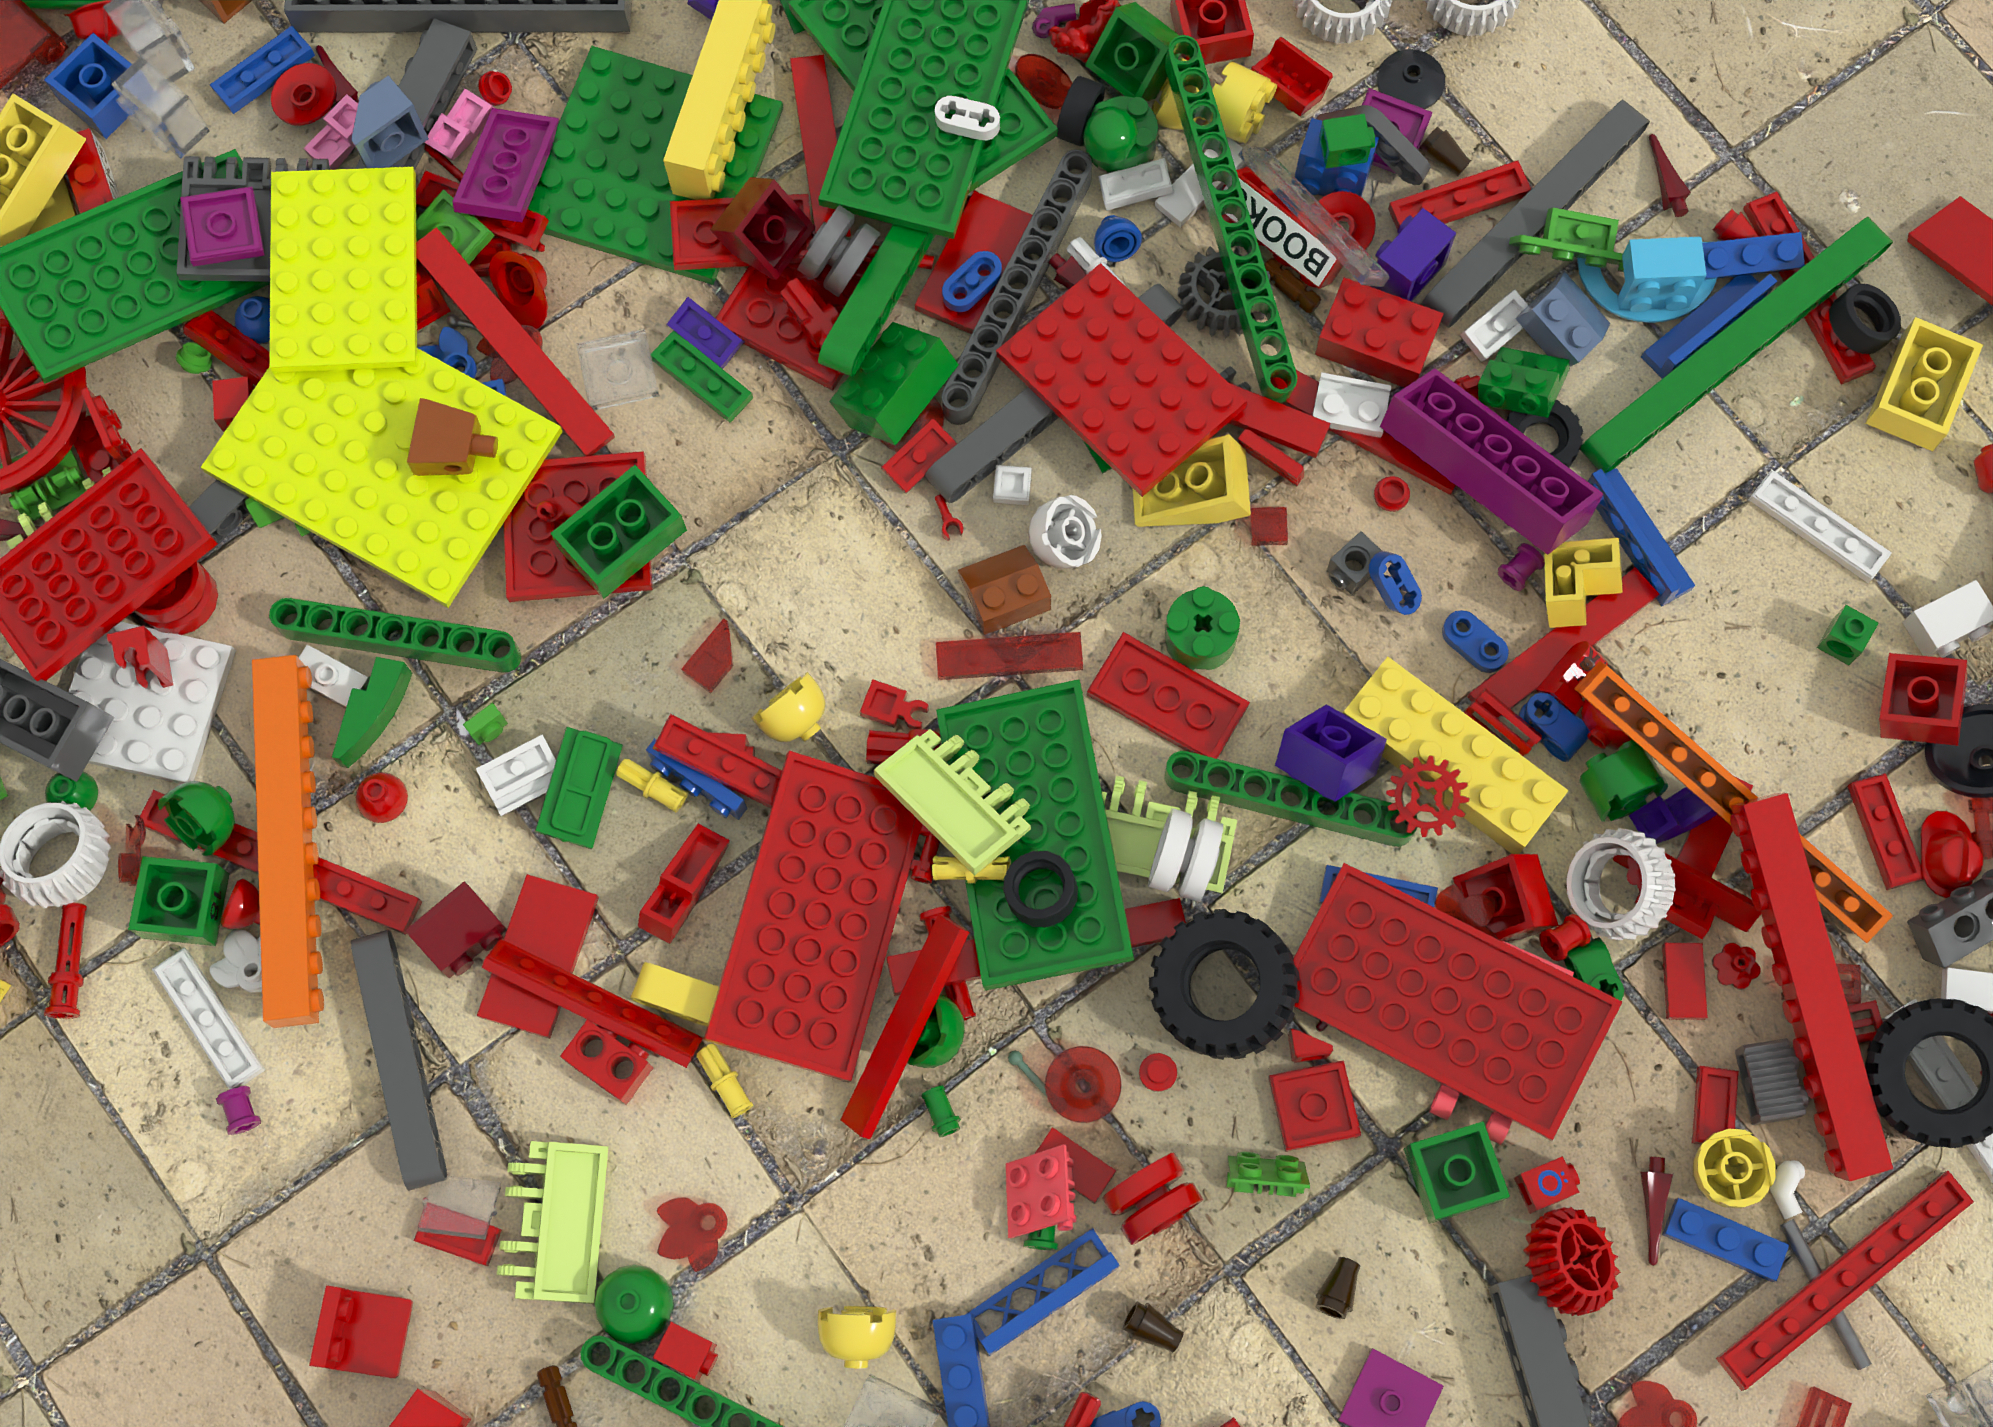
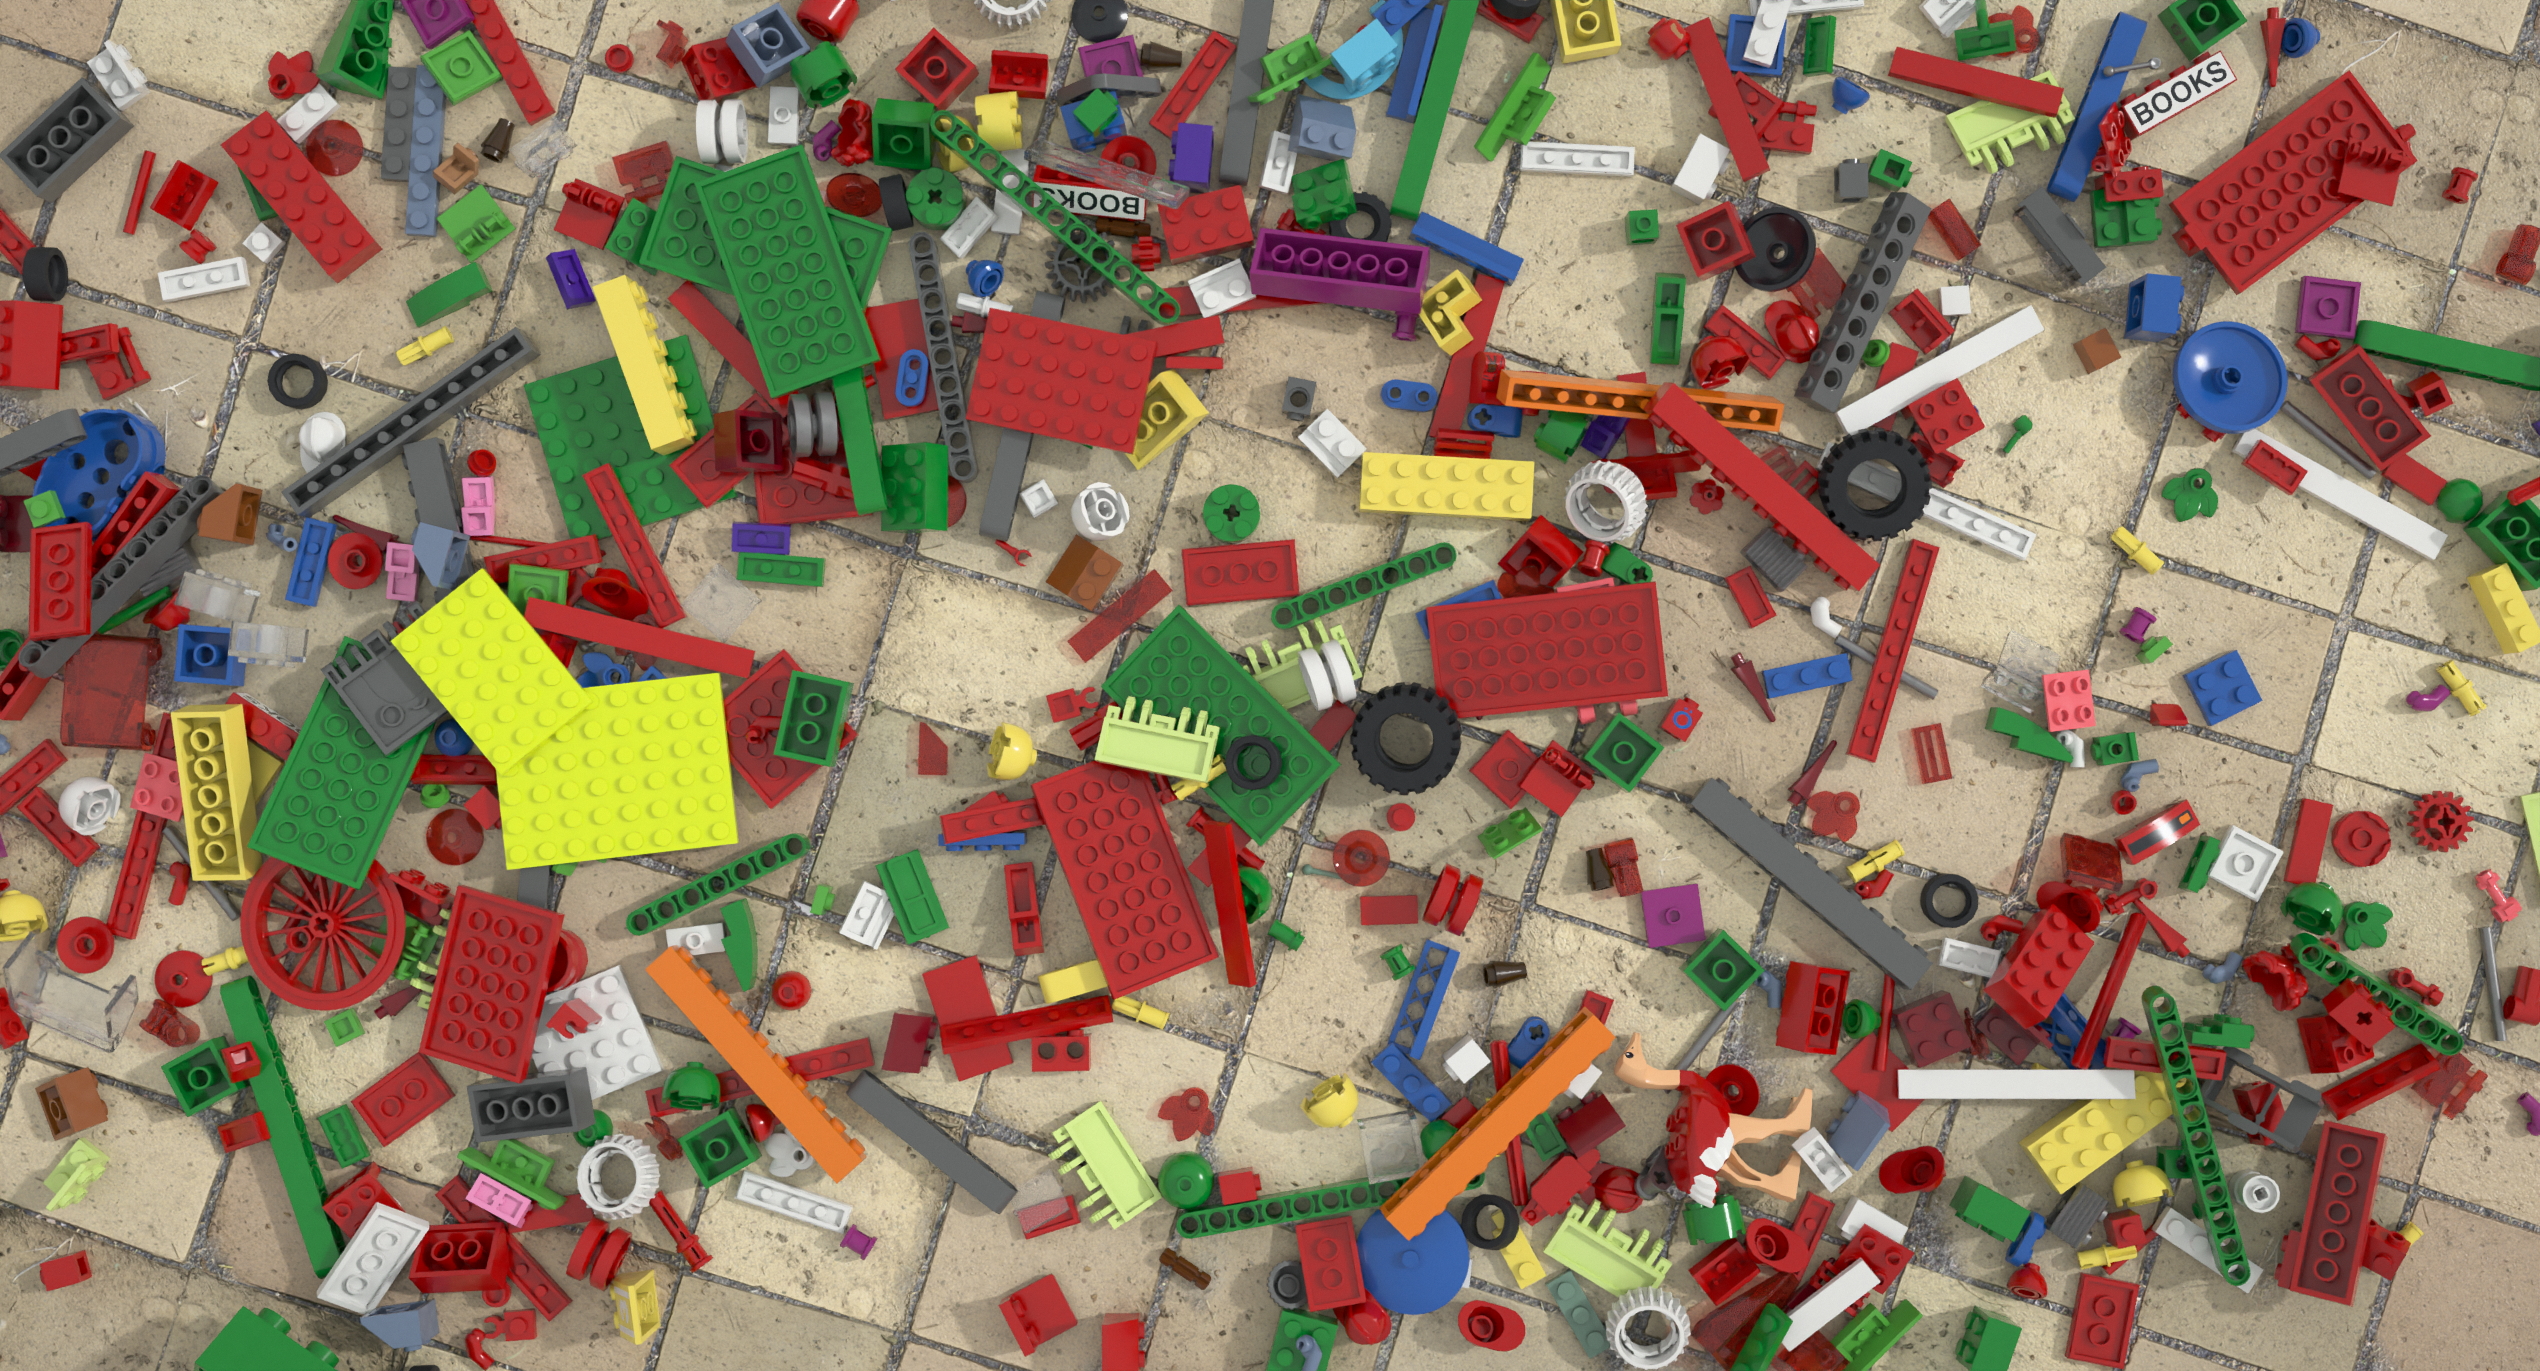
camera: 35 degrees left, 15 degrees up
(188, 424) = (468, 837): none -> clear red dish
(222, 226) = (390, 702): magenta plate -> none
(252, 30) = (276, 536): none -> sand blue arm
(447, 441) = (656, 739): dark orange torso -> none
(506, 165) = (537, 516): magenta plate -> none
(577, 256) = (634, 545): none -> red tile
(652, 785) = (956, 862): light yellow axle -> none
(918, 455) = (965, 523): red plate -> none
(967, 118) = (827, 263): white beam -> none
(1040, 1192) = (1382, 943): coral hinge -> none
(1040, 1390) = (1464, 1059): none -> white brick
(1110, 134) = (932, 212): green hair -> none
(1268, 526) = (1224, 409): clear red tile -> none
(1298, 321) = (1146, 253): none -> red gear
(1307, 1048) = (1481, 738): red slope -> none
(1330, 752) = (1370, 542): dark purple brick -> none
(1358, 634) = (1332, 443): none -> white plate
(1362, 1152) = (1557, 778): none -> red hinge
(1375, 1296) = (1622, 859): none -> clear red piece
(1391, 493) = (1288, 331): red plate -> none
(1400, 578) = (1332, 400): blue beam -> none
(1414, 807) = (1440, 525): red gear -> none
(1571, 1261) = (1725, 758): red gear -> none
(1641, 1362) = (1805, 784): none -> dark red piece
(1684, 981) = (1682, 530): red tile -> none
(1734, 1168) = (1786, 633): light yellow cylinder -> none
(1789, 435) = (1519, 111): none -> bright green bracket
(1814, 747) = (1667, 318): none -> green slope
(1845, 827) = (1716, 360): none -> red cylinder

